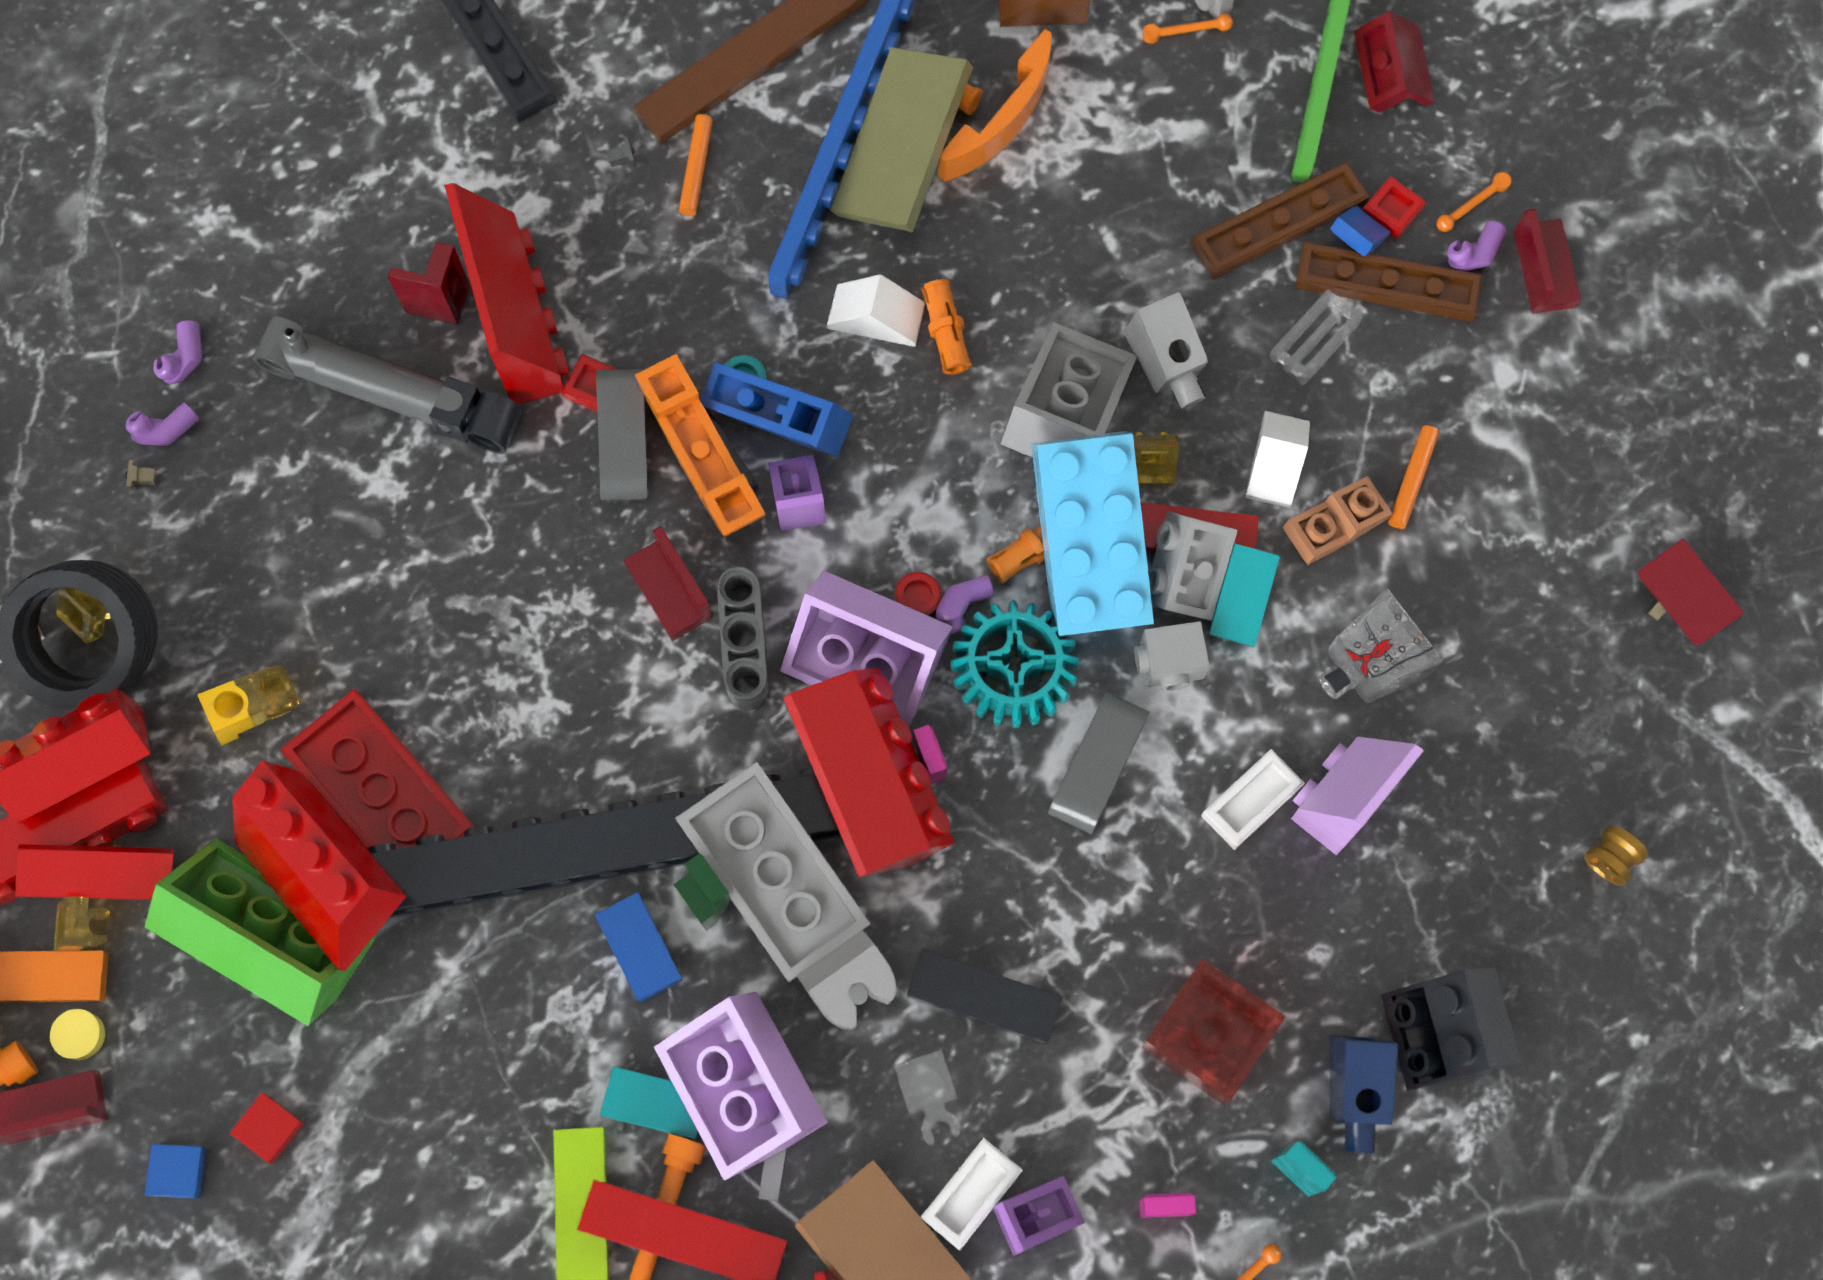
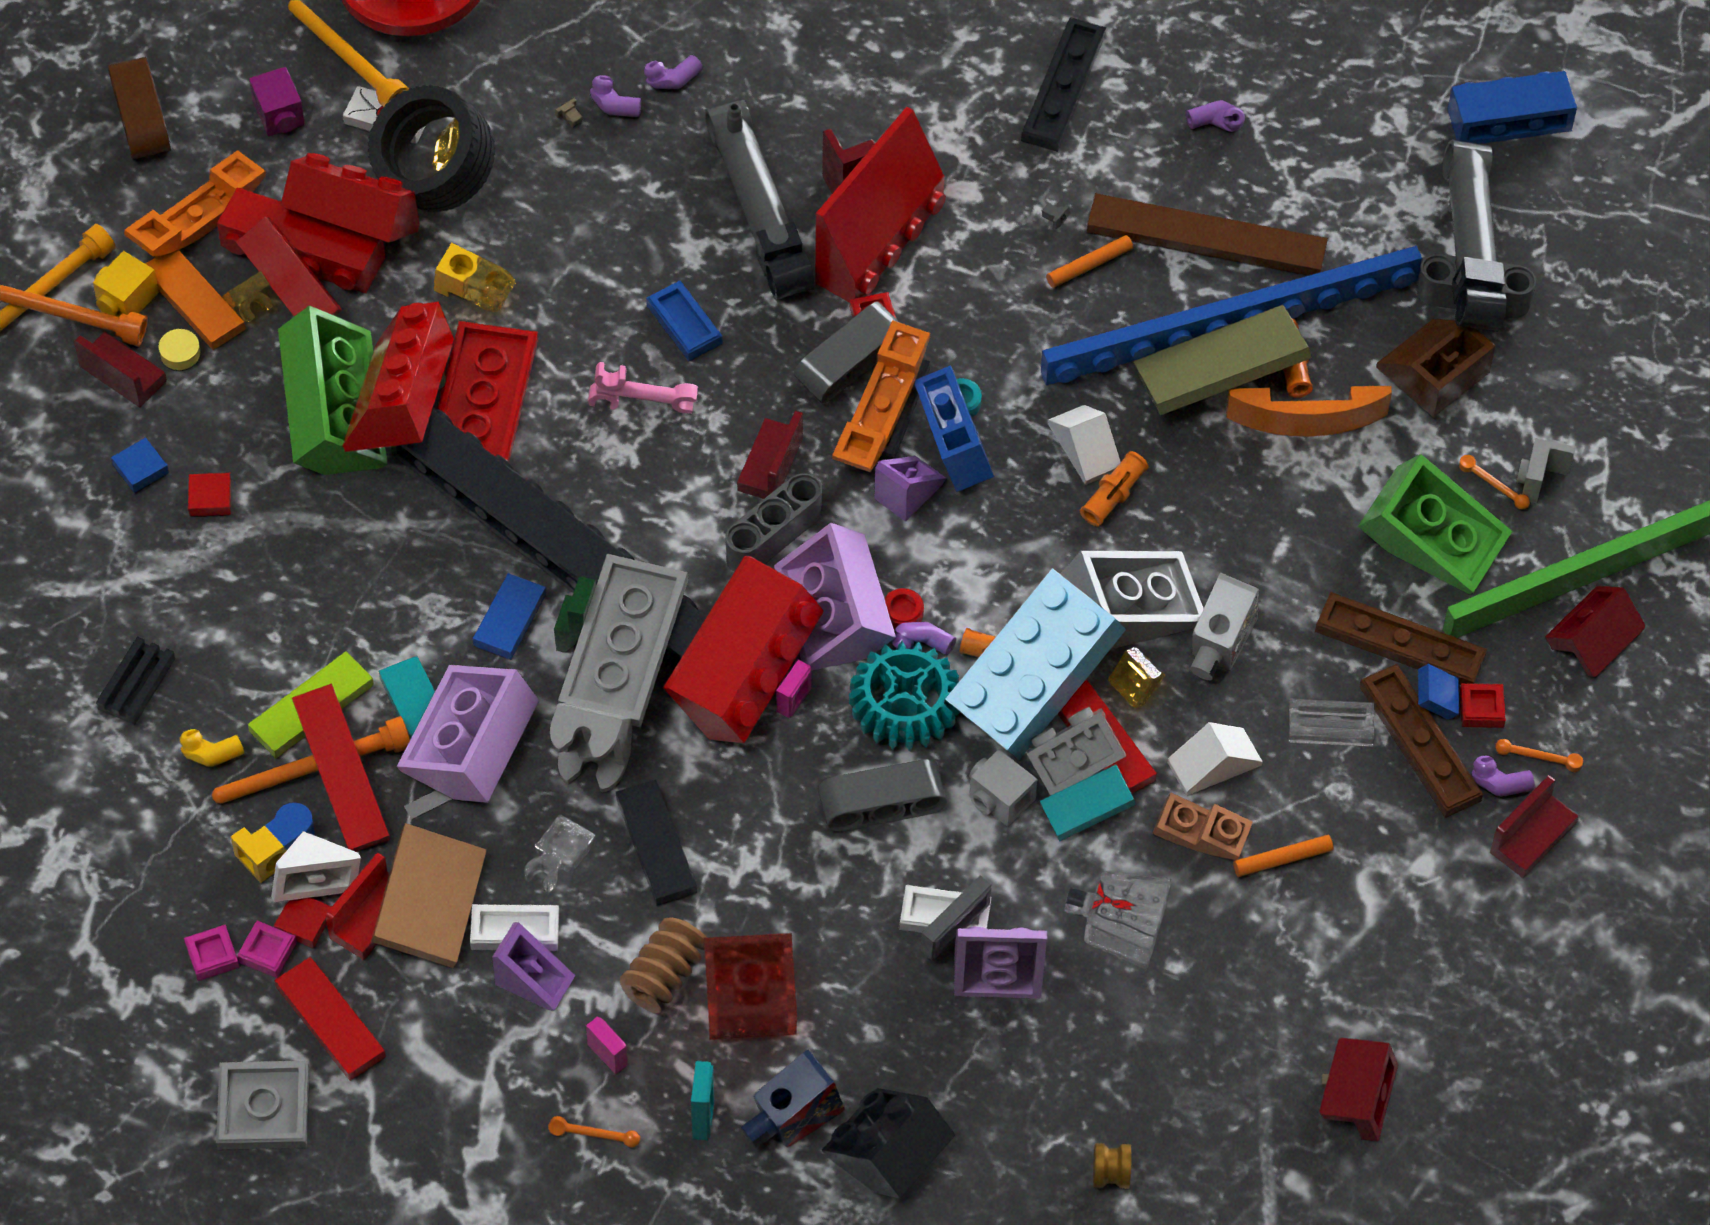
camera: 50 degrees right, 15 degrees down
(455, 549) = (684, 320): none -> blue tile
(479, 666) = (612, 385): none -> bright pink bar
(1124, 1089) = (661, 962): none -> medium nougat piece
(1196, 105) = (1435, 525): none -> bright green slope
(1284, 798) = (955, 916): none -> dark grey tile

